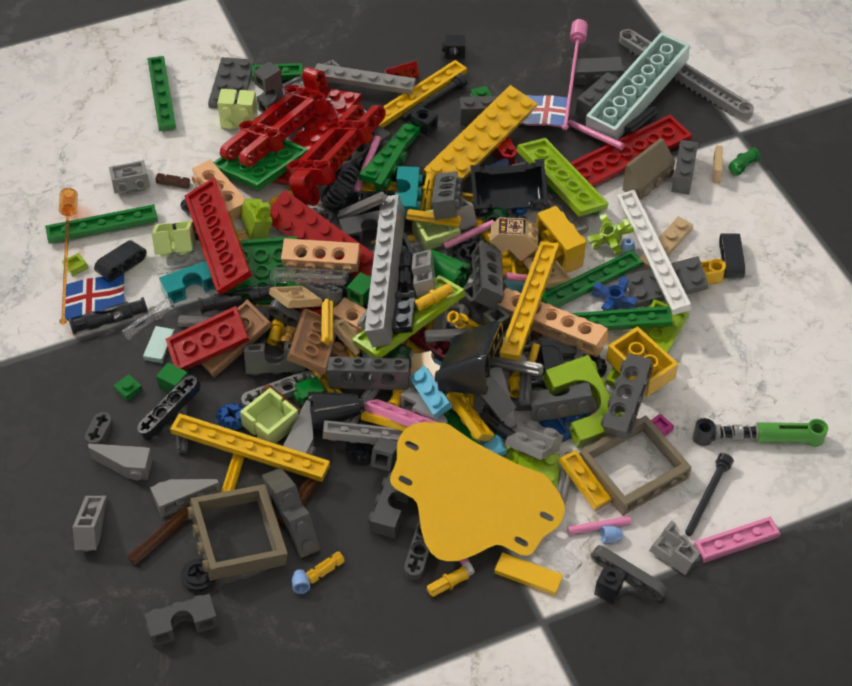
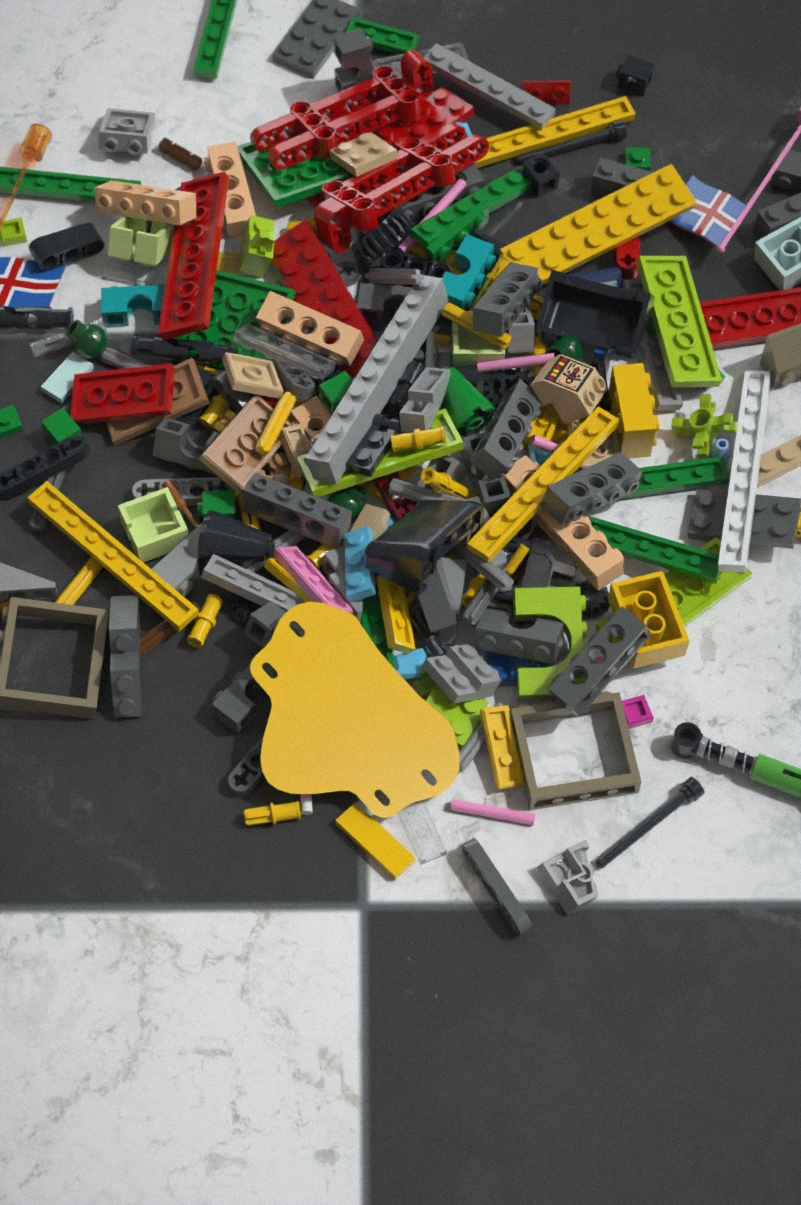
camera: 20 degrees right, 10 degrees up
(164, 313) = (87, 339): none -> dark green piece
(167, 212) = (145, 202): none -> light nougat brick
(226, 421) = (101, 504): blue gear -> none
(233, 114) = (308, 85): yellowish green piece -> none
(300, 582) = (100, 747): light blue hose -> none
(304, 139) = (363, 154): none -> tan plate
(325, 567) = (137, 740): yellow axle -> none
(335, 470) = (205, 621): none -> yellow pin
(562, 292) = (591, 488): none -> dark grey brick
(596, 134) = (760, 272): bright pink bar -> none
(609, 584) = (464, 891): black brick -> none
(611, 534) = (500, 829): light blue hose -> none
(614, 295) = (670, 507): blue pin -> none
(737, 539) = (656, 895): bright pink tile -> none

